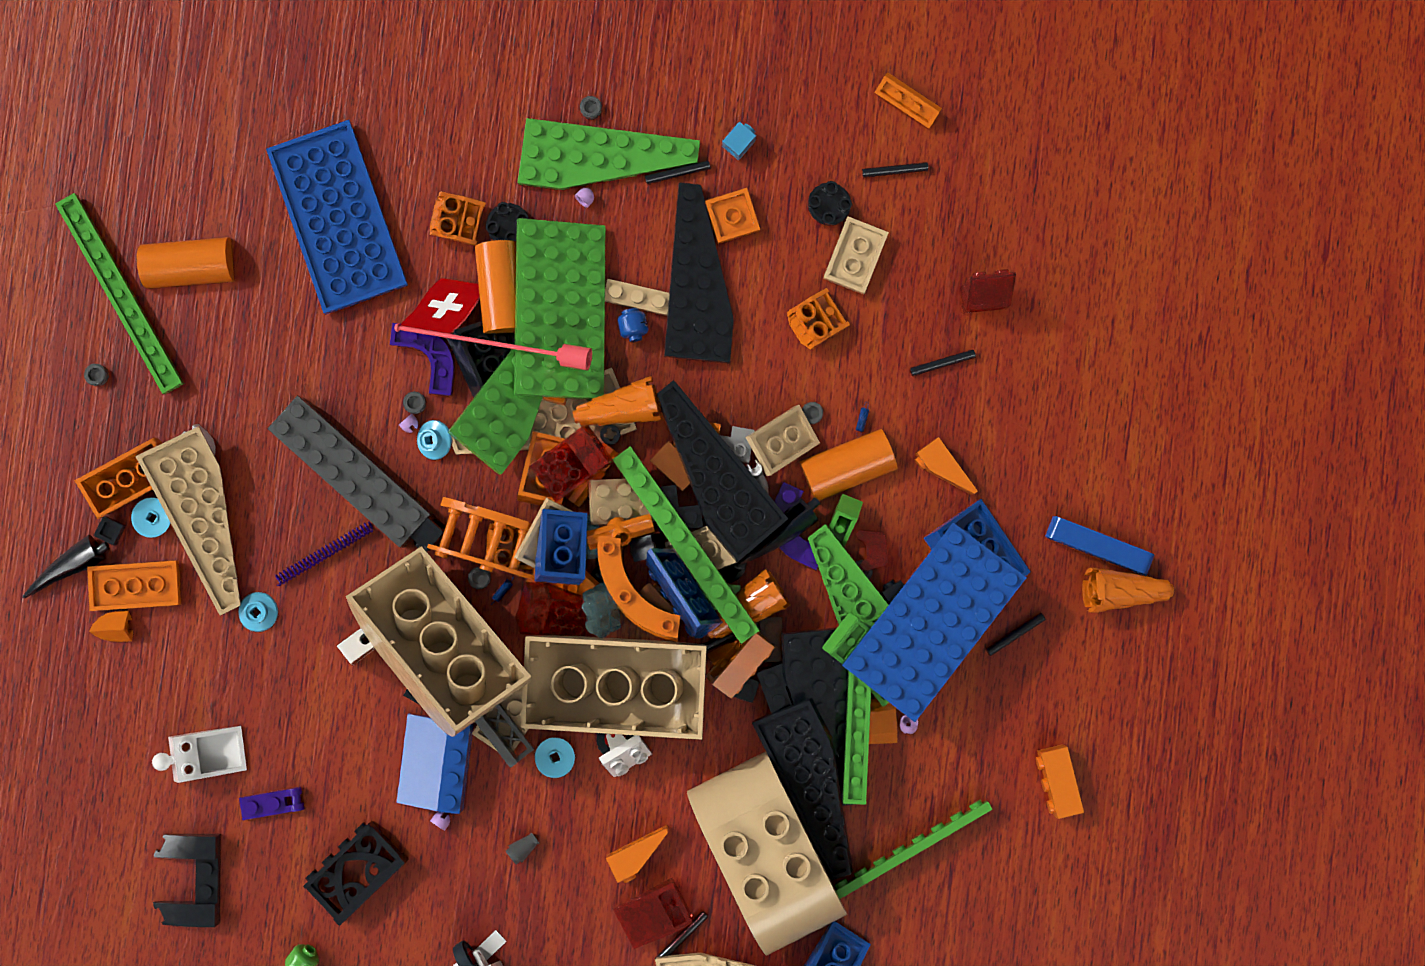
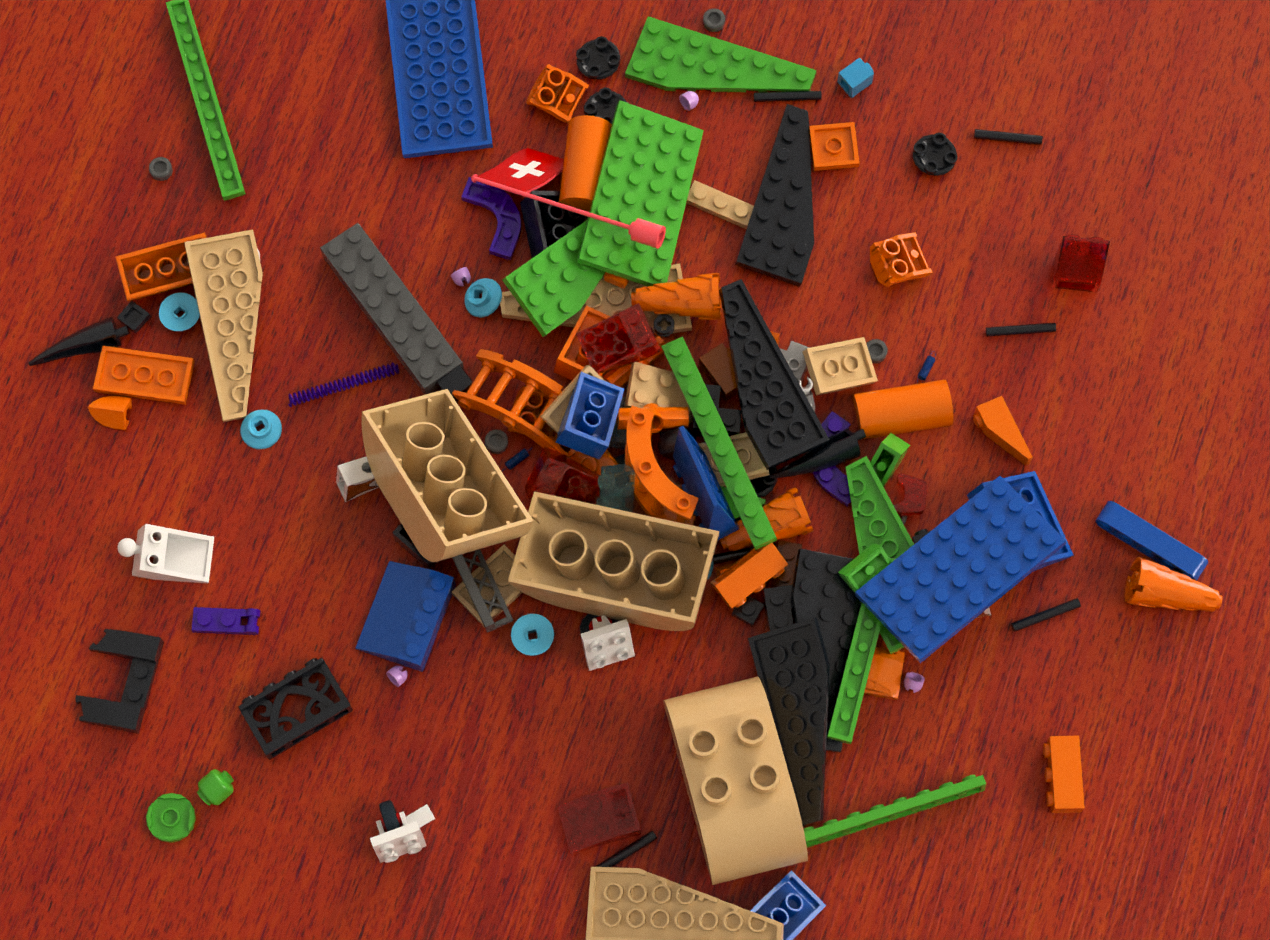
camera: 15 degrees right, 15 degrees down
(185, 262) = (278, 82): orange brick -> none
(414, 402) = (471, 258): dark grey tile -> none
(488, 172) = (598, 58): none -> black dish
(522, 848) = (476, 721): dark grey cone -> none
(630, 858) = (591, 754): orange slope -> none
(633, 324) = (710, 228): blue head -> none
(855, 255) = (951, 208): tan plate -> none
(908, 100) = (1034, 73): orange plate -> none

